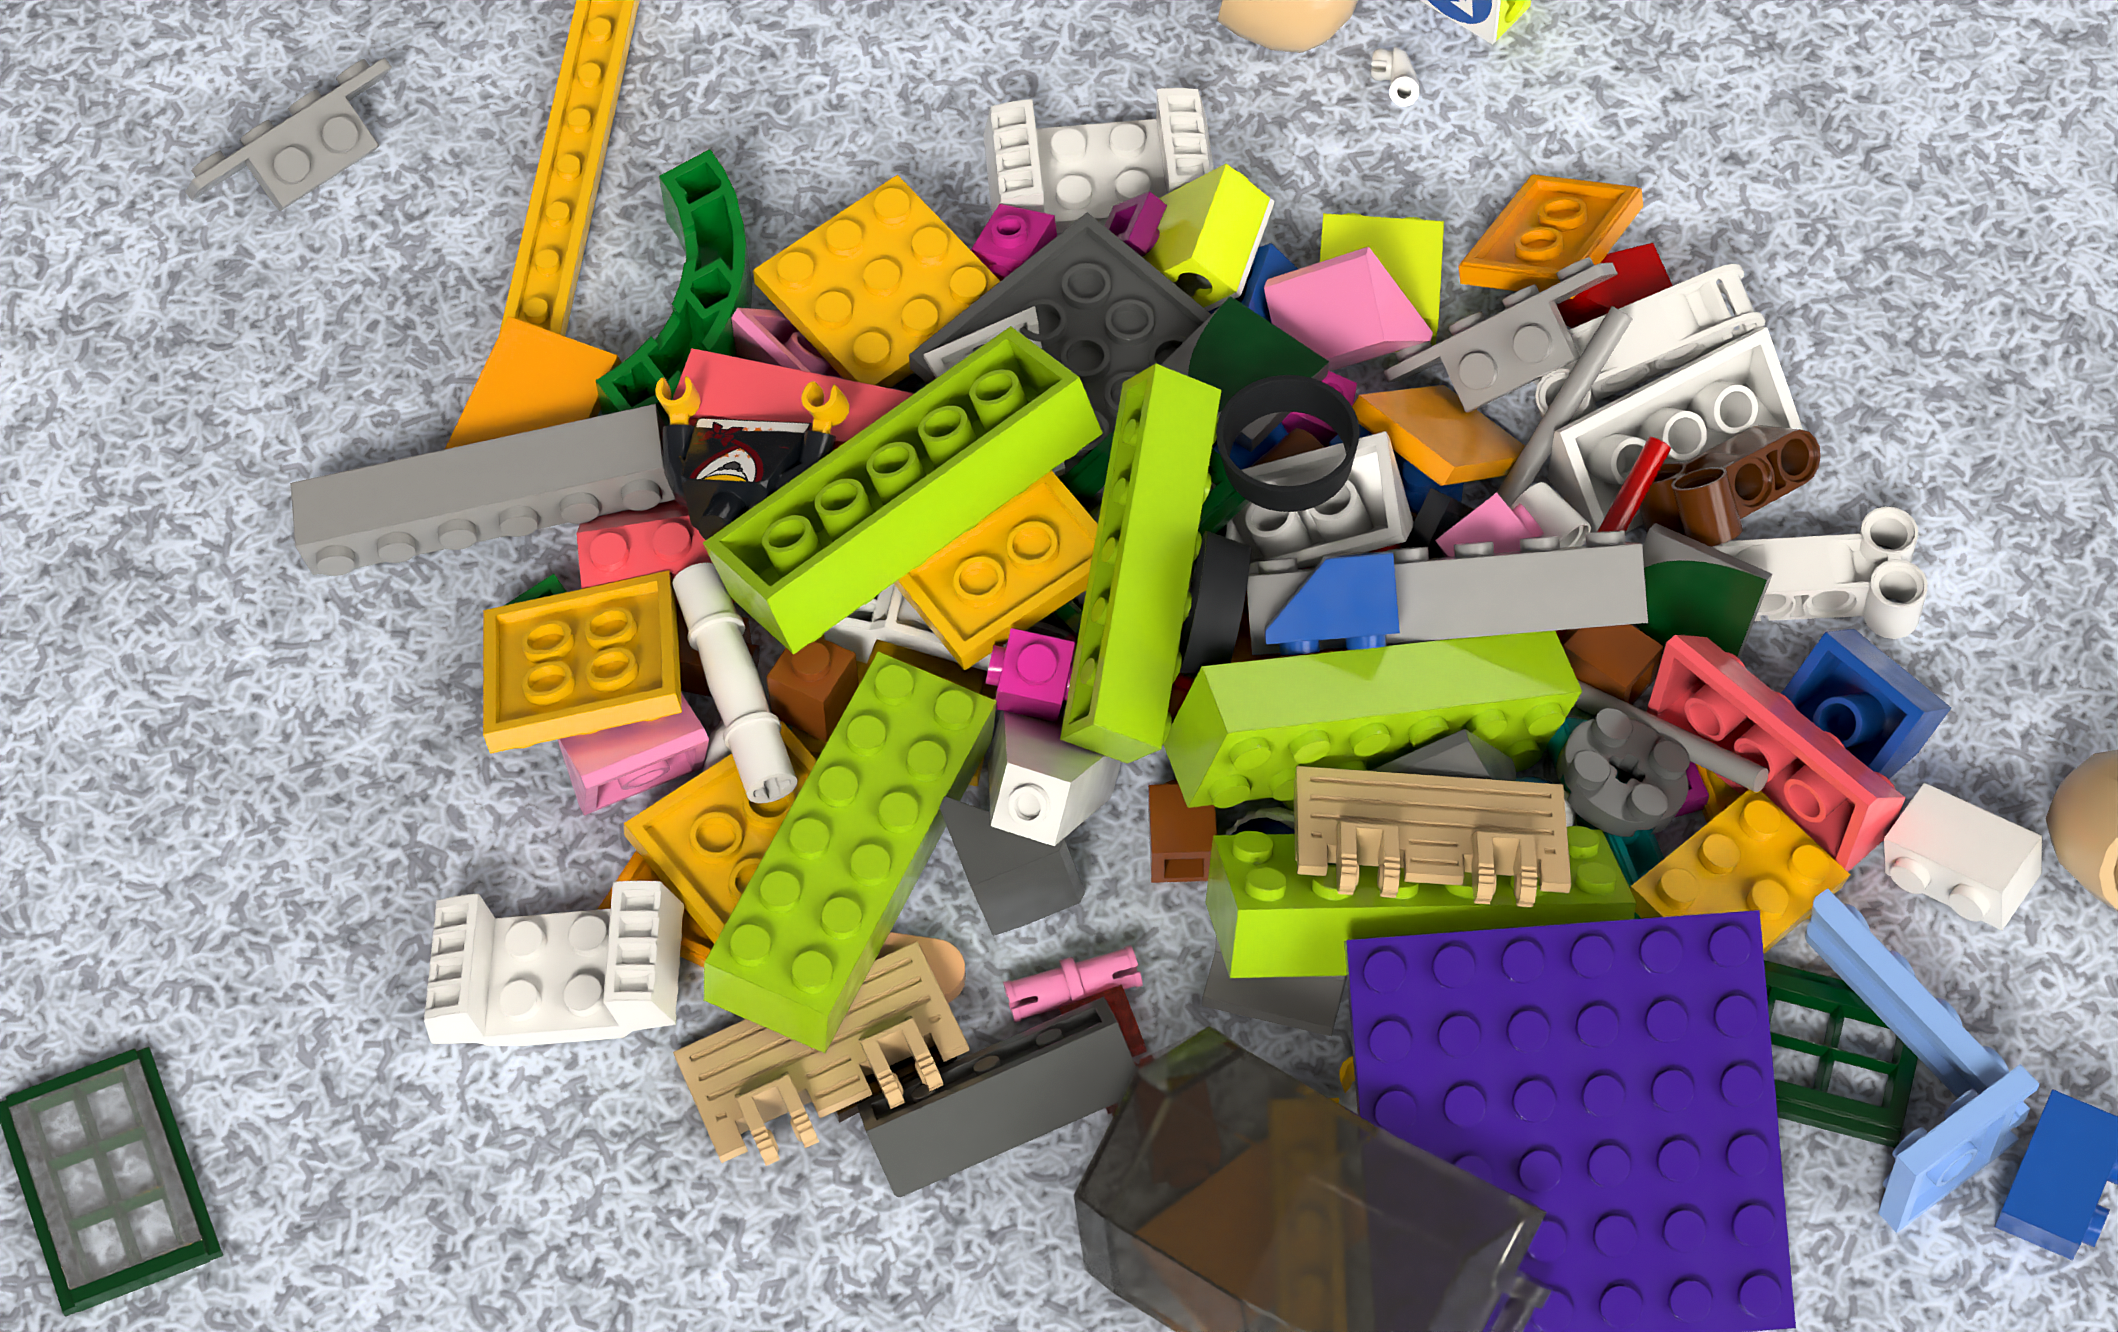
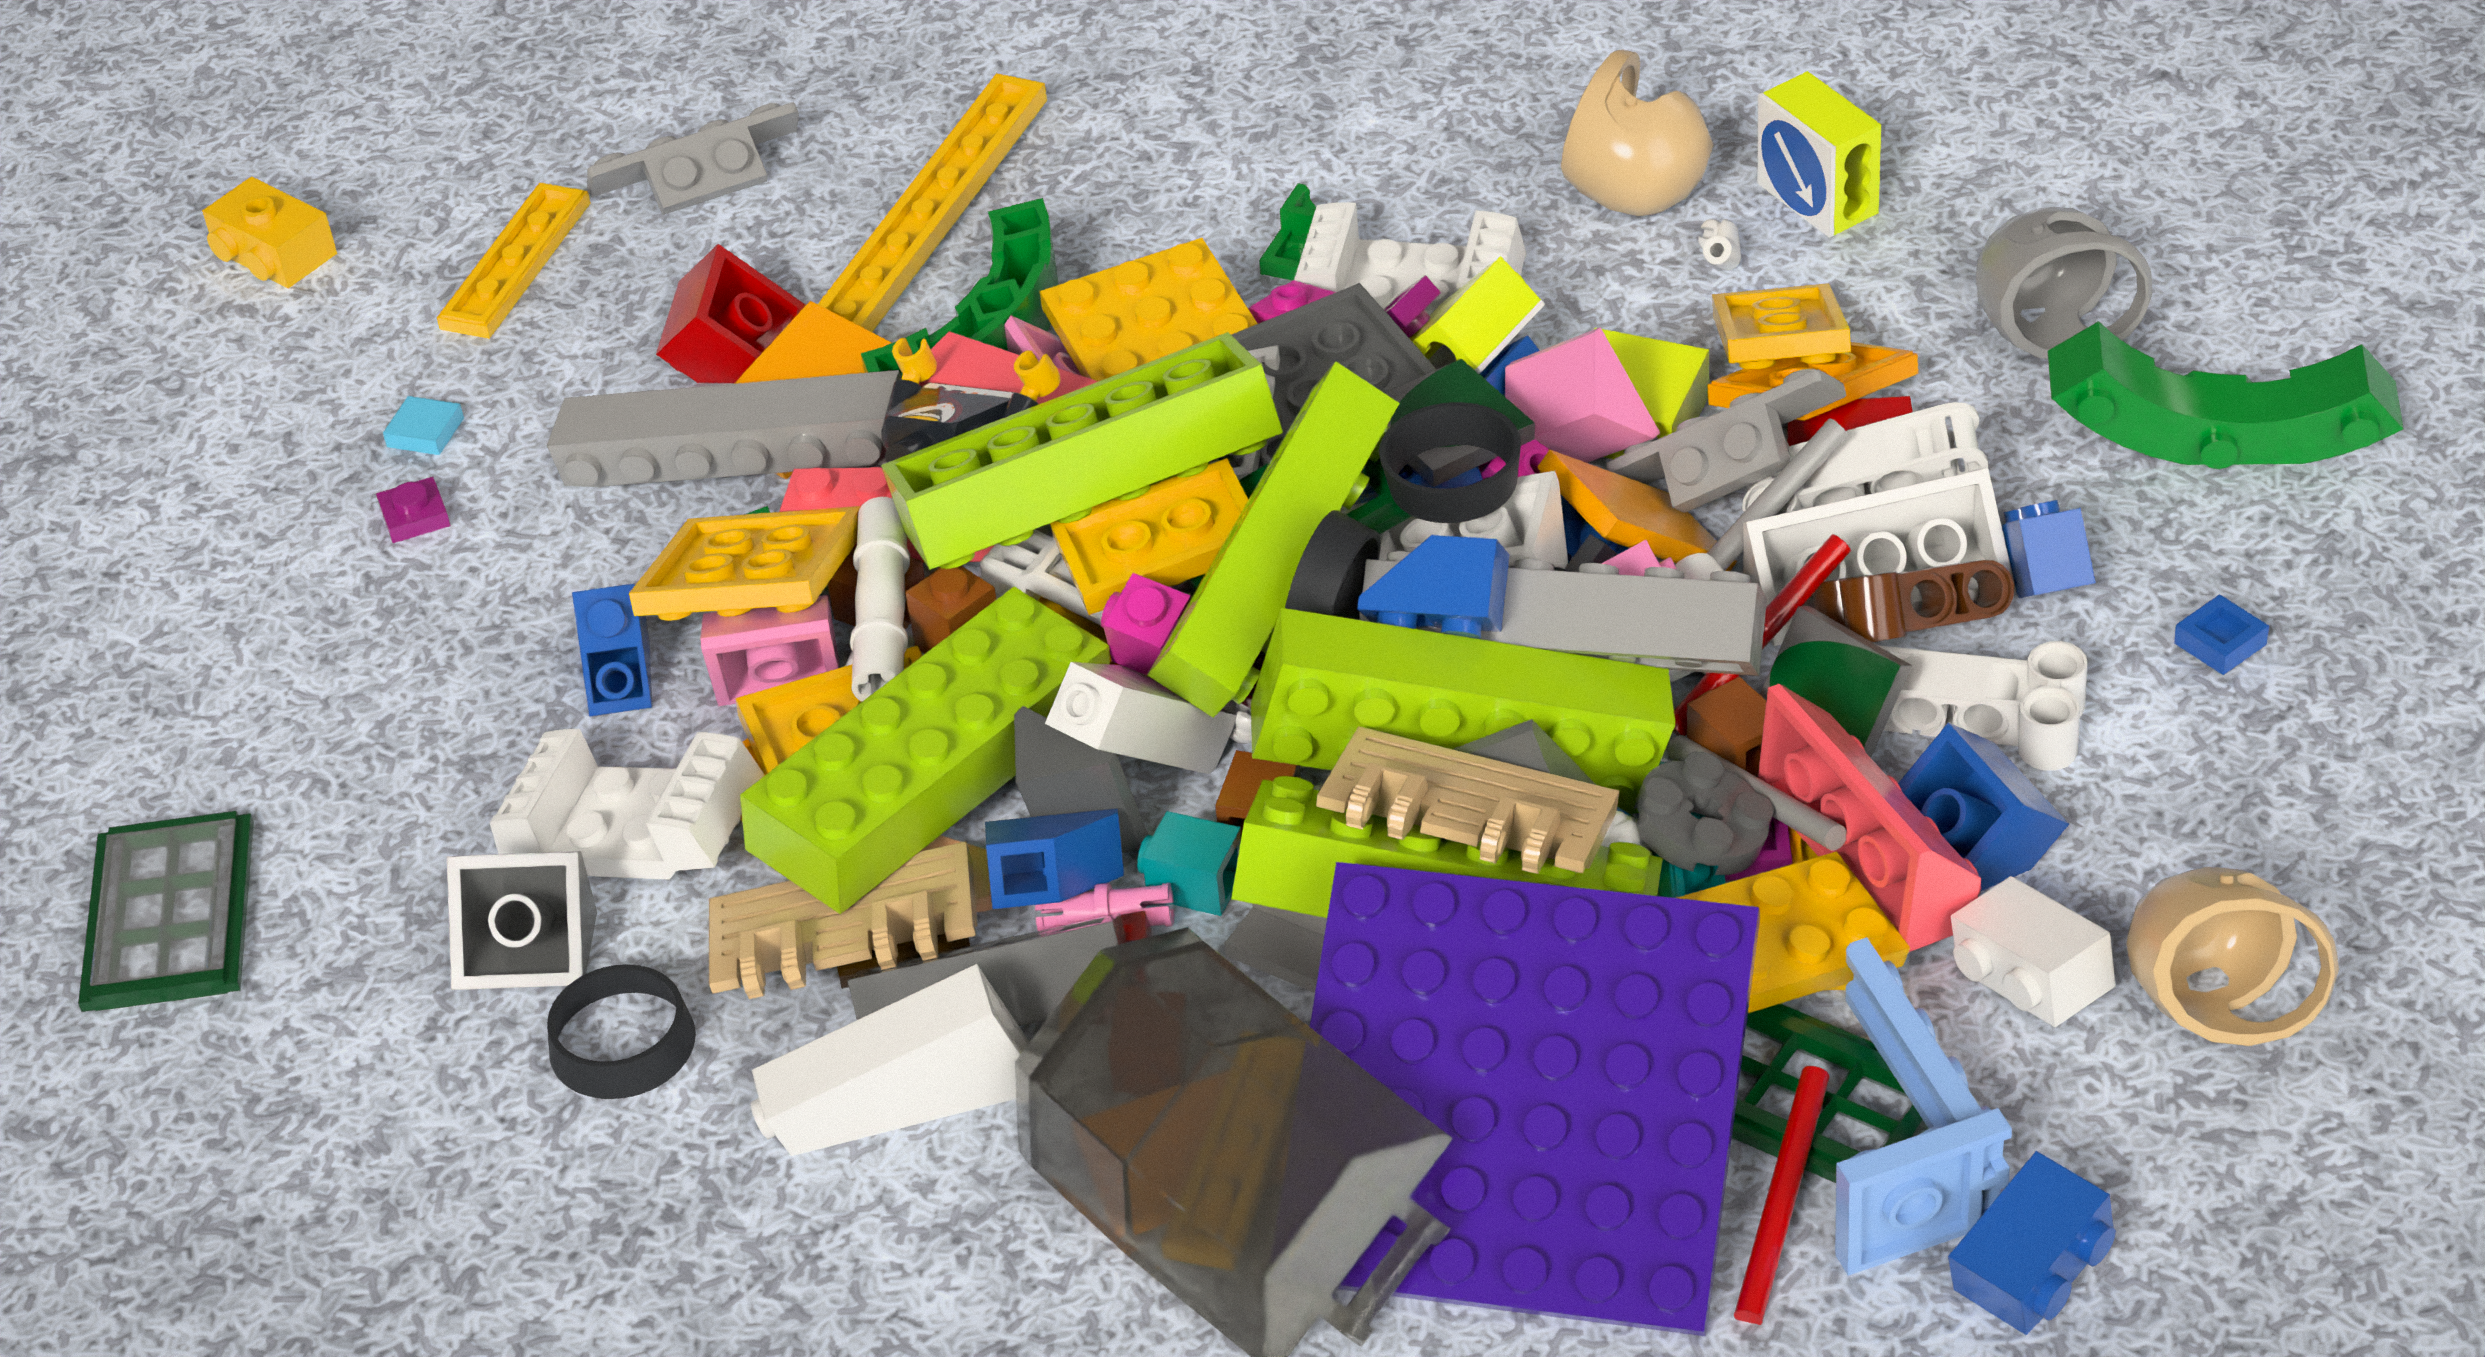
camera: 20 degrees right, 15 degrees down
(131, 529) = (423, 425): none -> medium azure tile
(143, 299) = (513, 260): none -> yellow tile
(164, 637) = (413, 509): none -> magenta plate
(416, 346) = (723, 318): none -> red slope
(459, 775) = (613, 650): none -> blue slope
(495, 1126) = (519, 919): none -> dark grey slope
(651, 1283) = (630, 1075): none -> black tyre
(944, 1218) = (894, 1068): none -> white slope
(964, 141) = (1286, 249): none -> green slope
(1009, 948) = (1052, 856): none -> blue slope
(1142, 913) = (1194, 858): none -> teal brick
(1498, 174) = (1780, 325): none -> yellow plate
(1731, 68) = (2055, 263): none -> light grey piece
(1820, 1168) = (1781, 1195): none -> red bar
(1833, 395) = (2047, 549): none -> slope
(1944, 207) = (2223, 416): none -> green brick
(2014, 459) = (2221, 634): none -> blue plate

